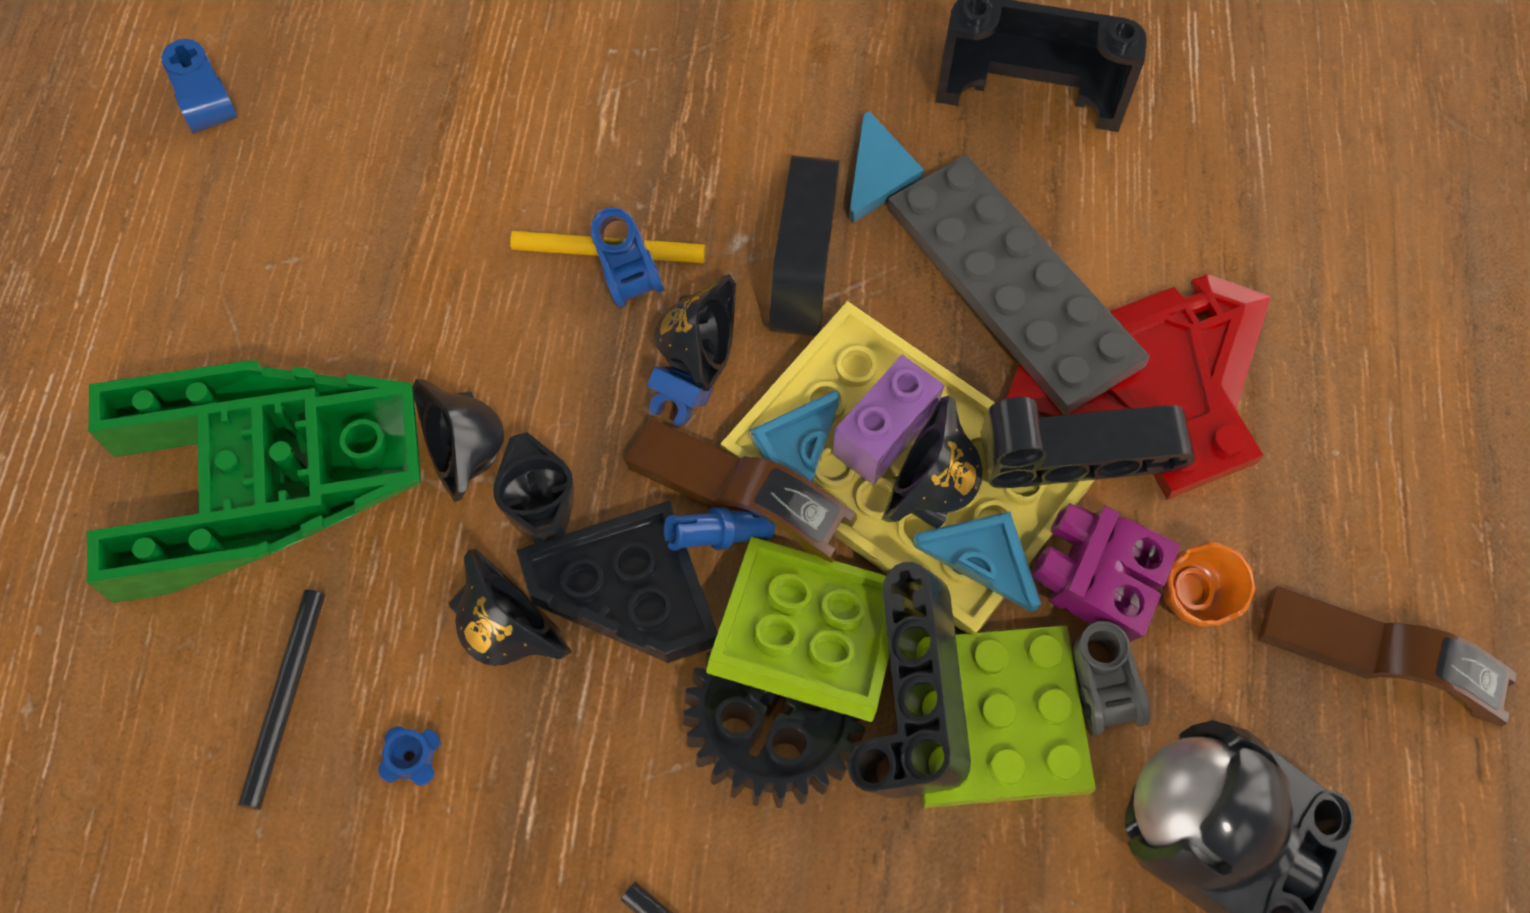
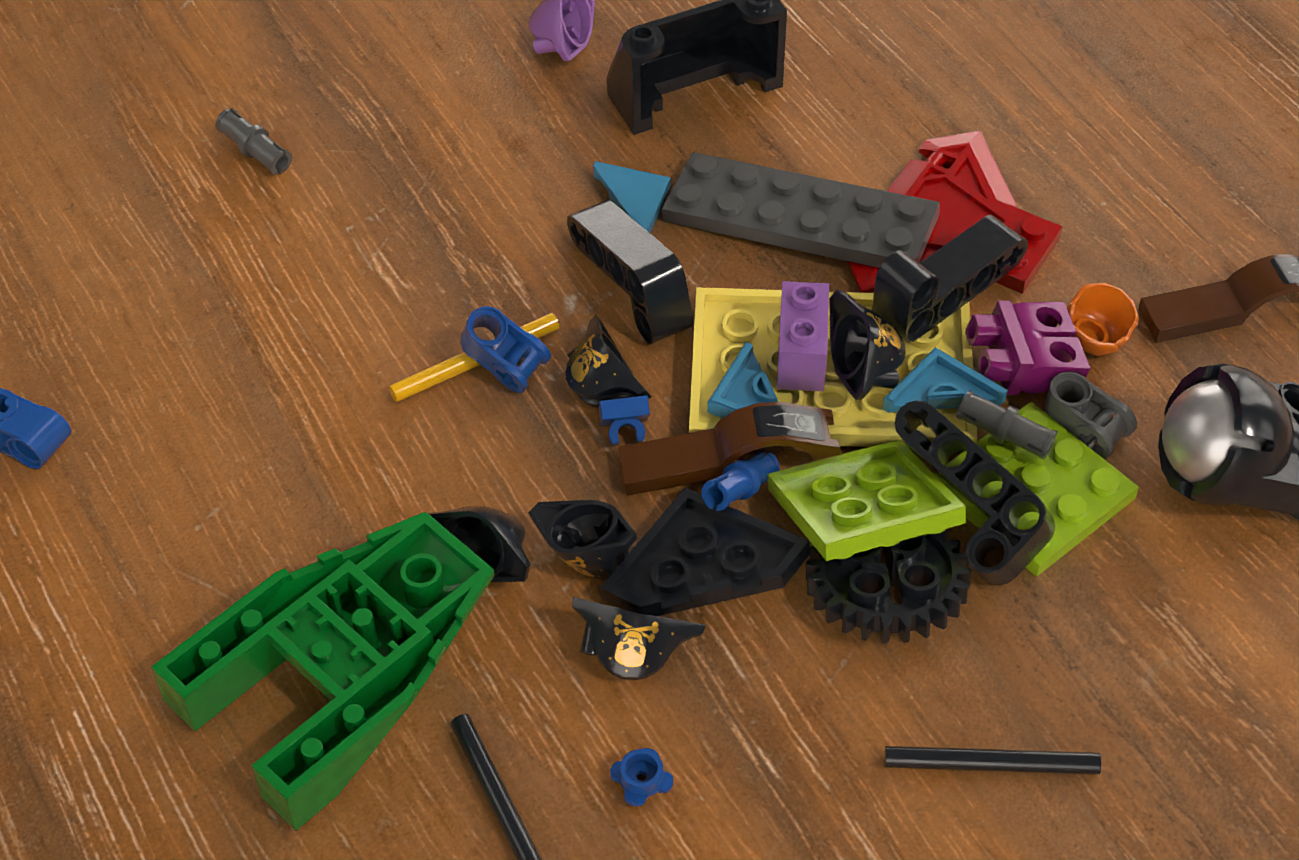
camera: 35 degrees left, 15 degrees down
(1007, 641) = (1006, 424): none -> dark grey pin

